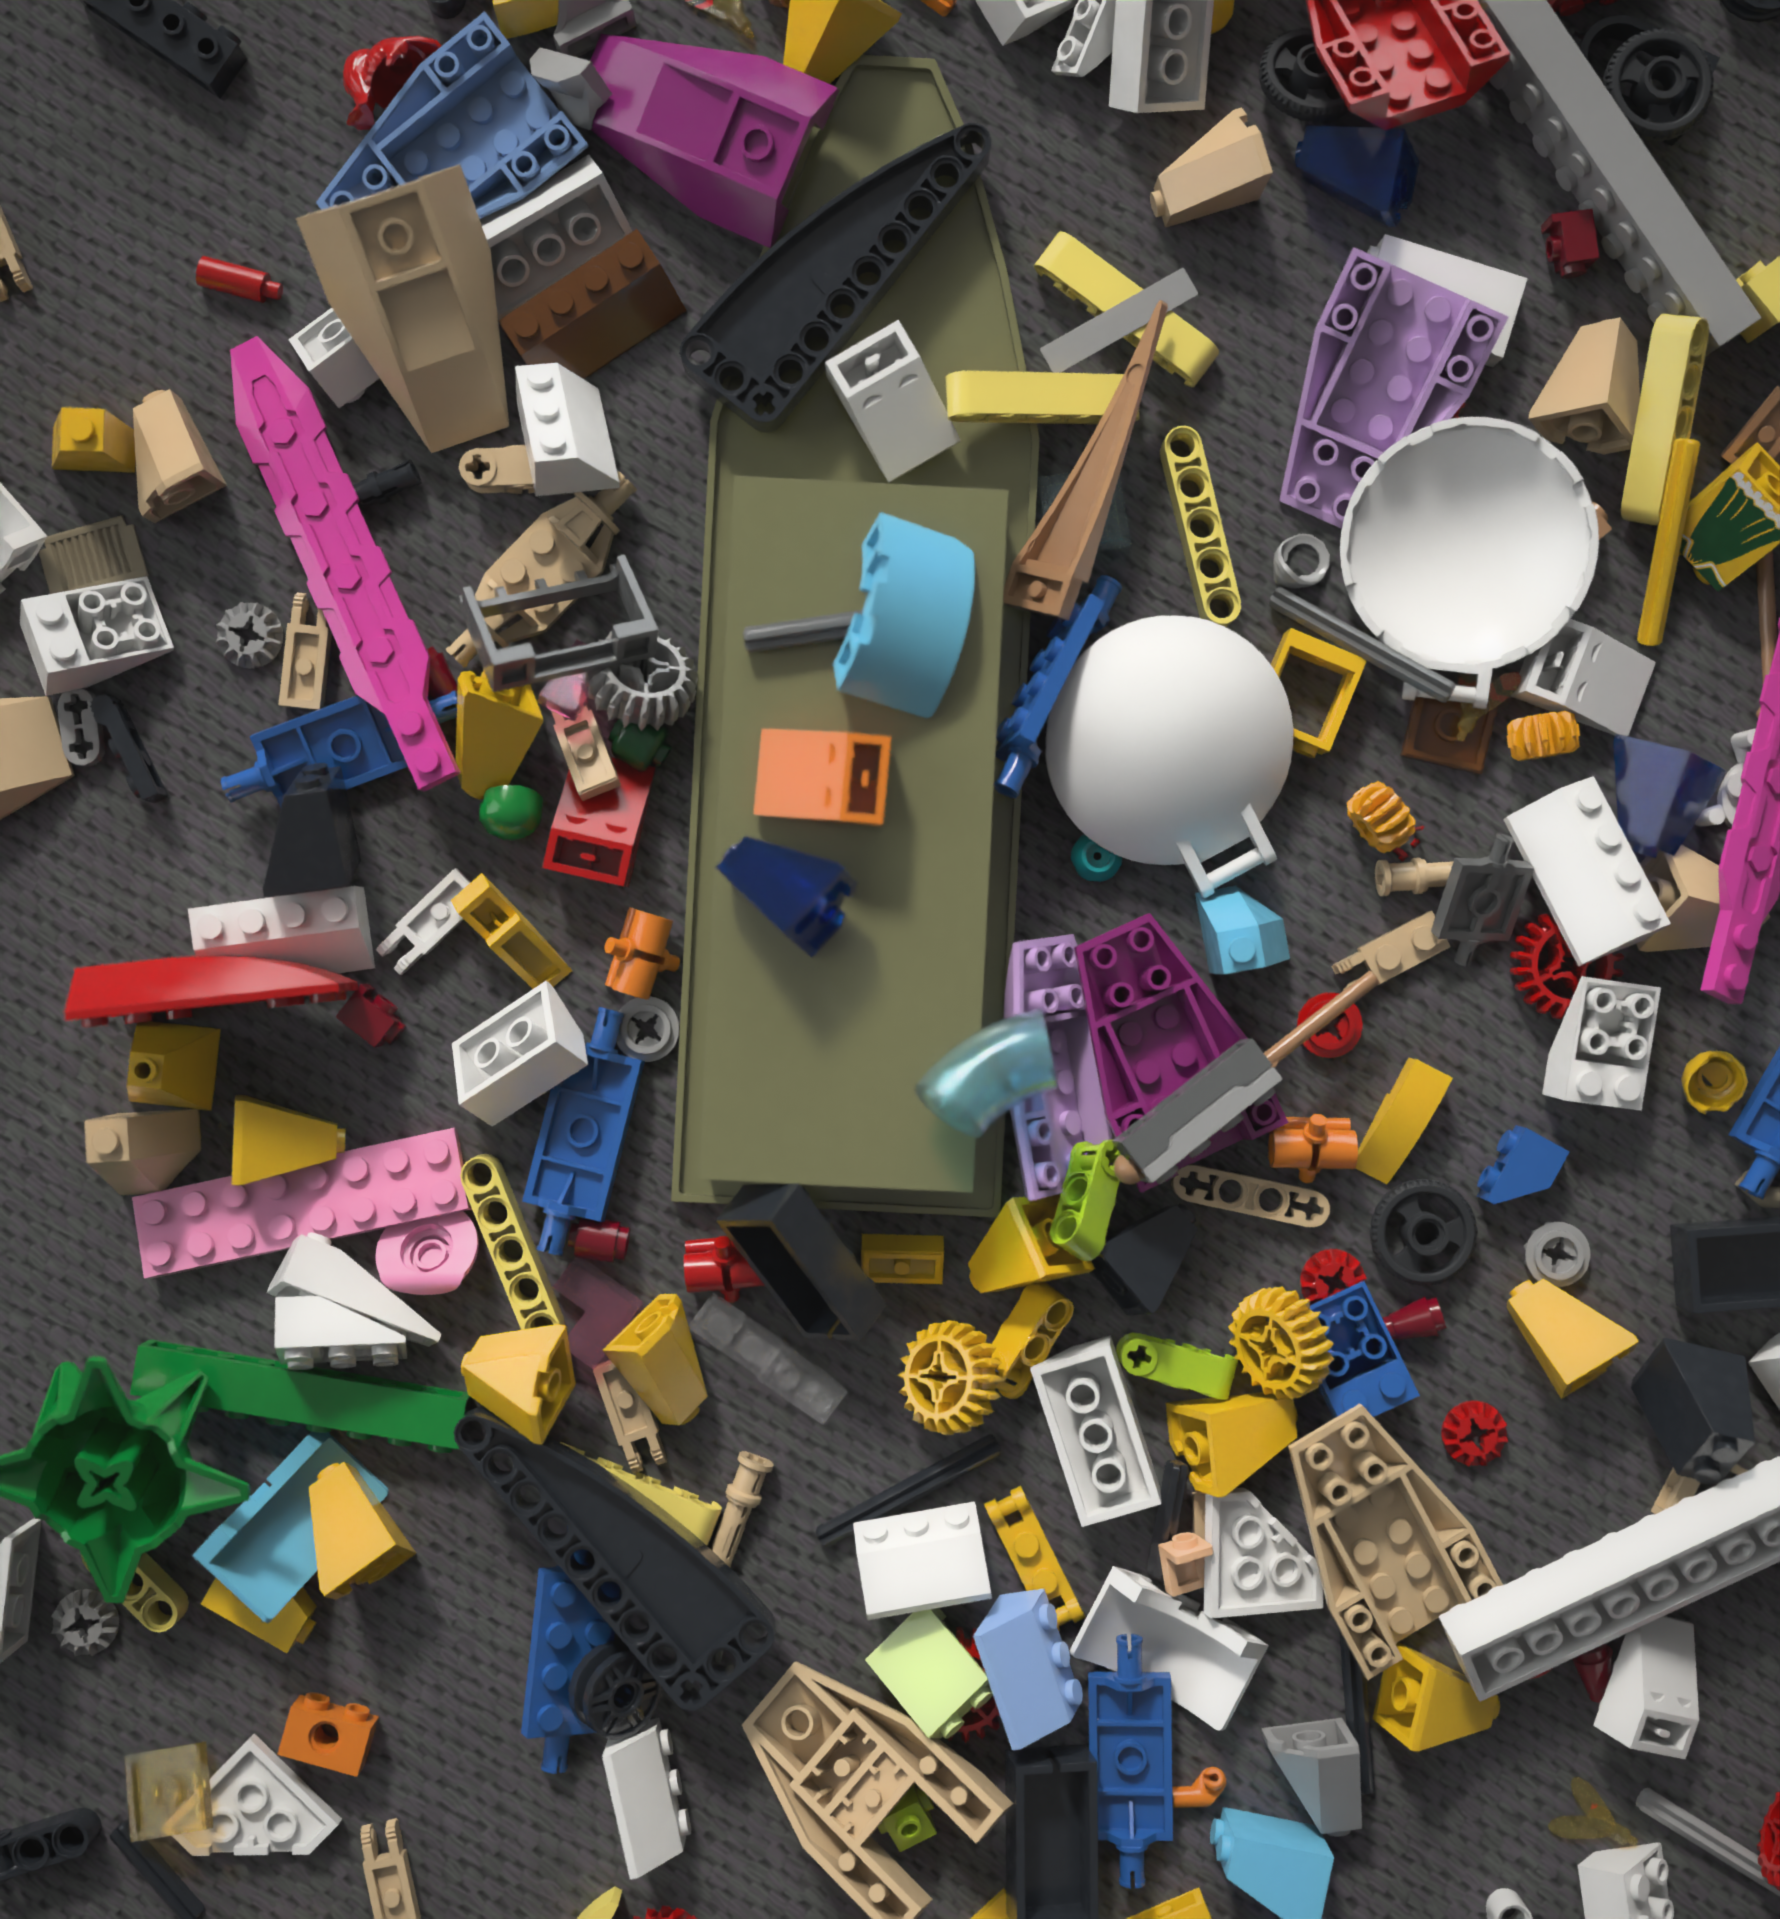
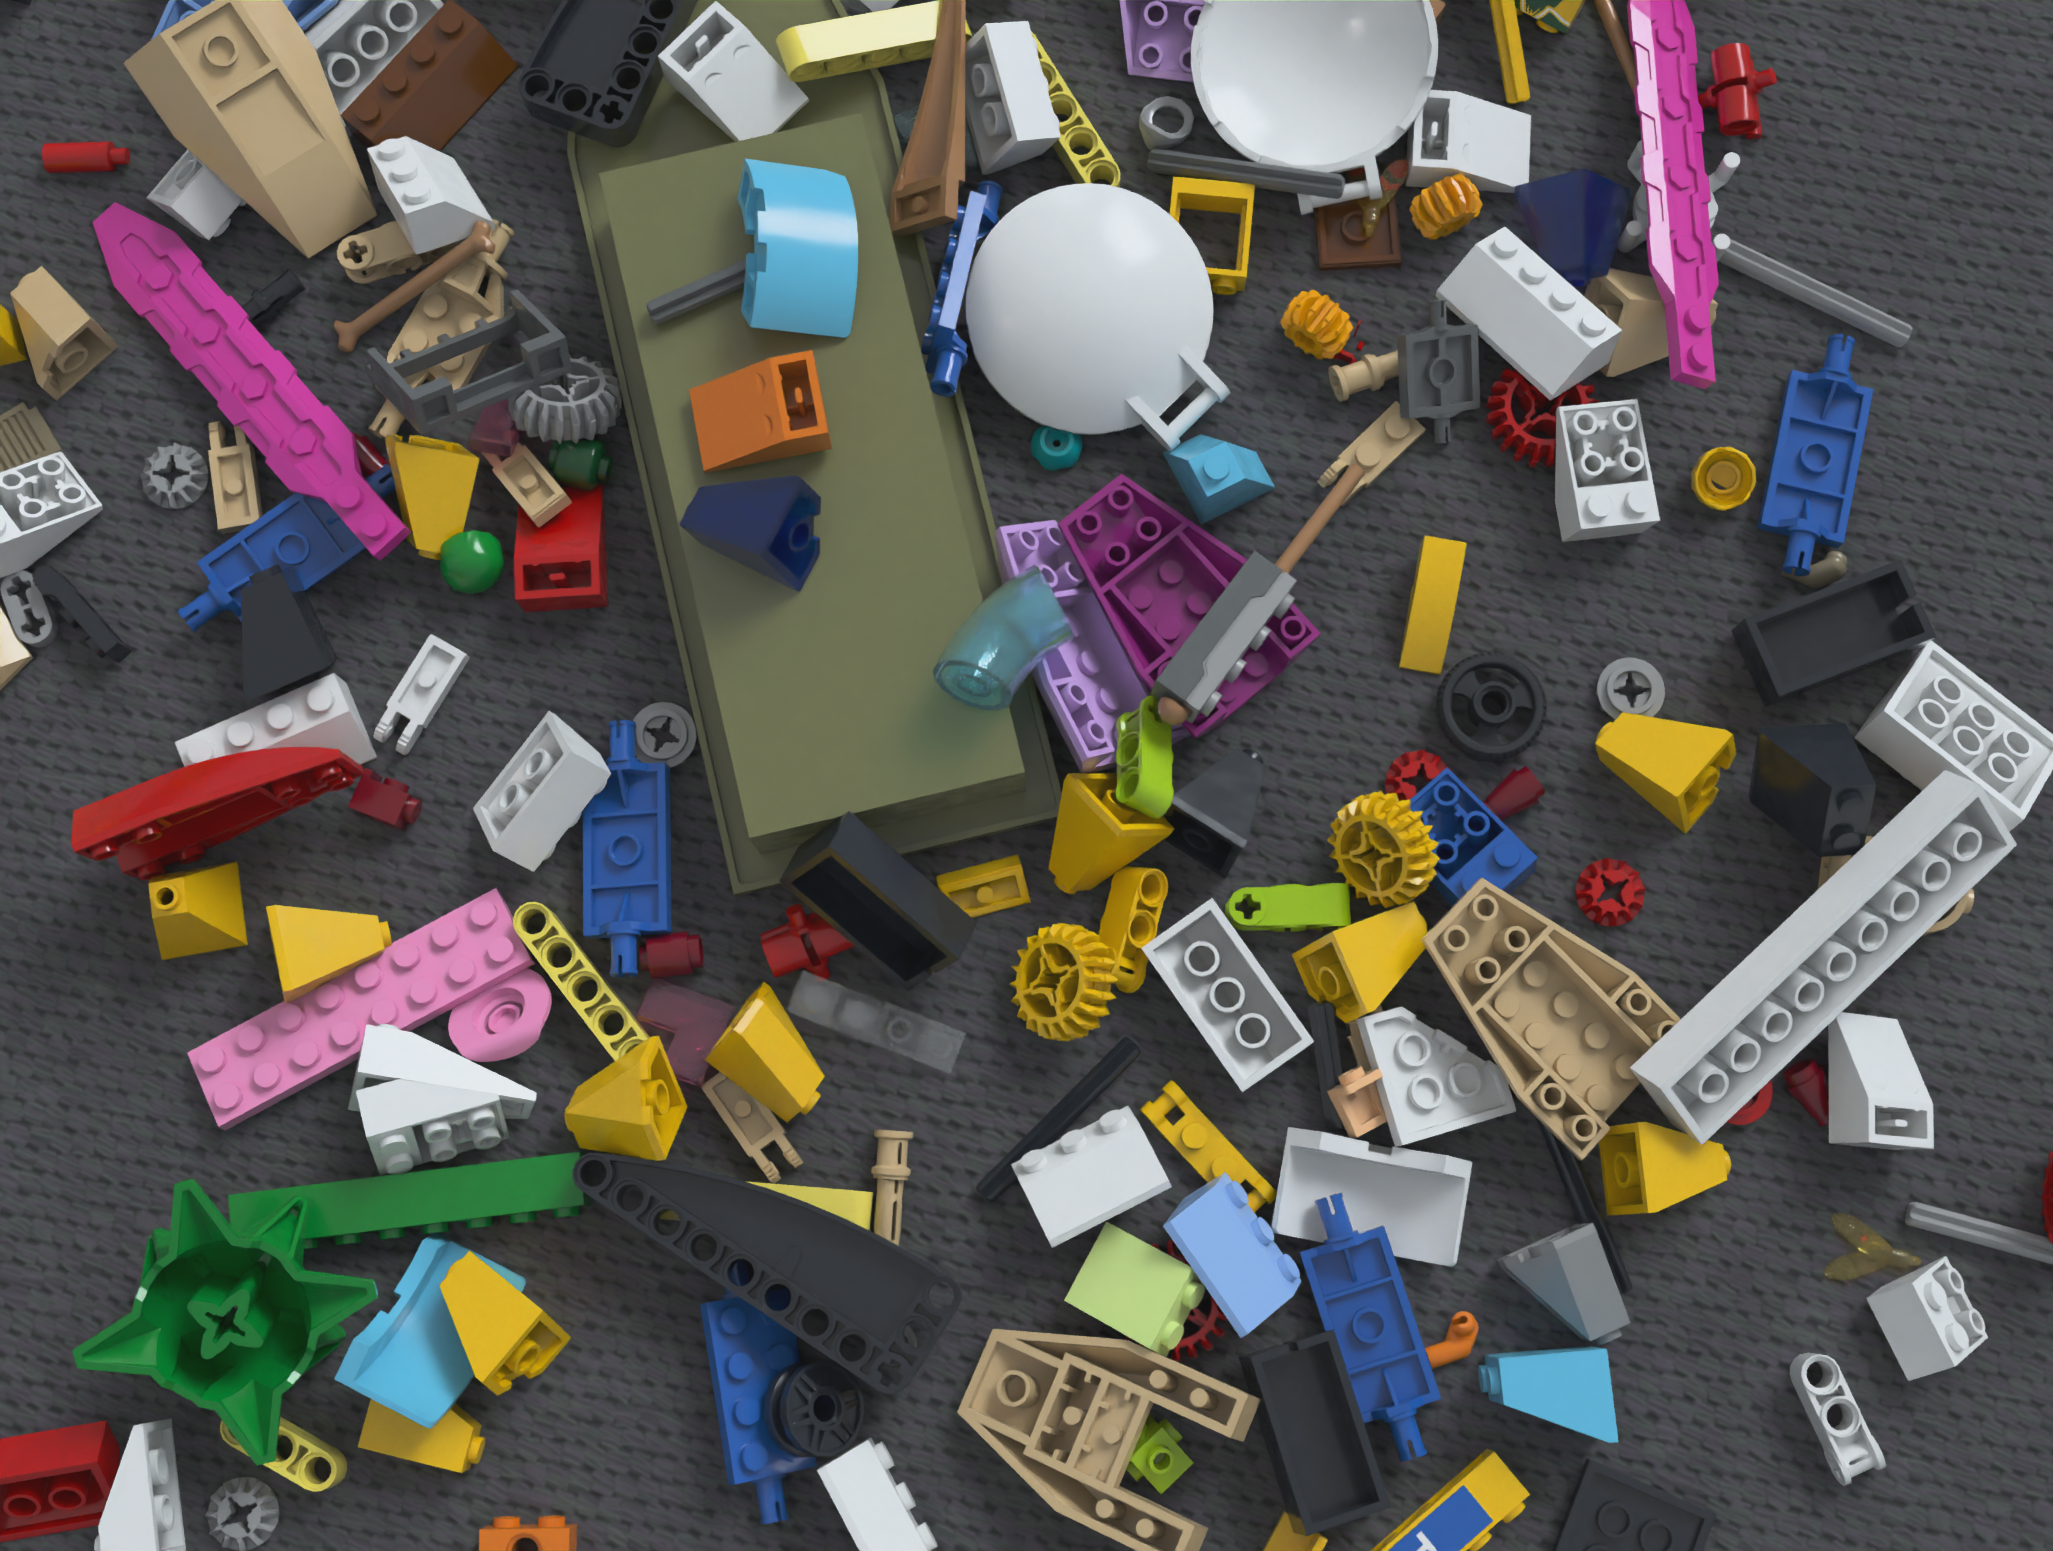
camera: 15 degrees left, 10 degrees down
(142, 1149) = (184, 993): tan slope -> none
(509, 933) = (501, 679): yellow slope -> none
(597, 499) = (476, 242): none -> medium nougat piece
(640, 954) = (635, 661): orange pin -> none
(1155, 501) = (1007, 96): none -> white slope
(1249, 1198) = (1309, 726): tan beam -> none
(1313, 1145) = (1353, 653): orange pin -> none
(1348, 1028) = (1352, 535): red gear -> none
(1523, 1167) = (1569, 611): blue slope -> none

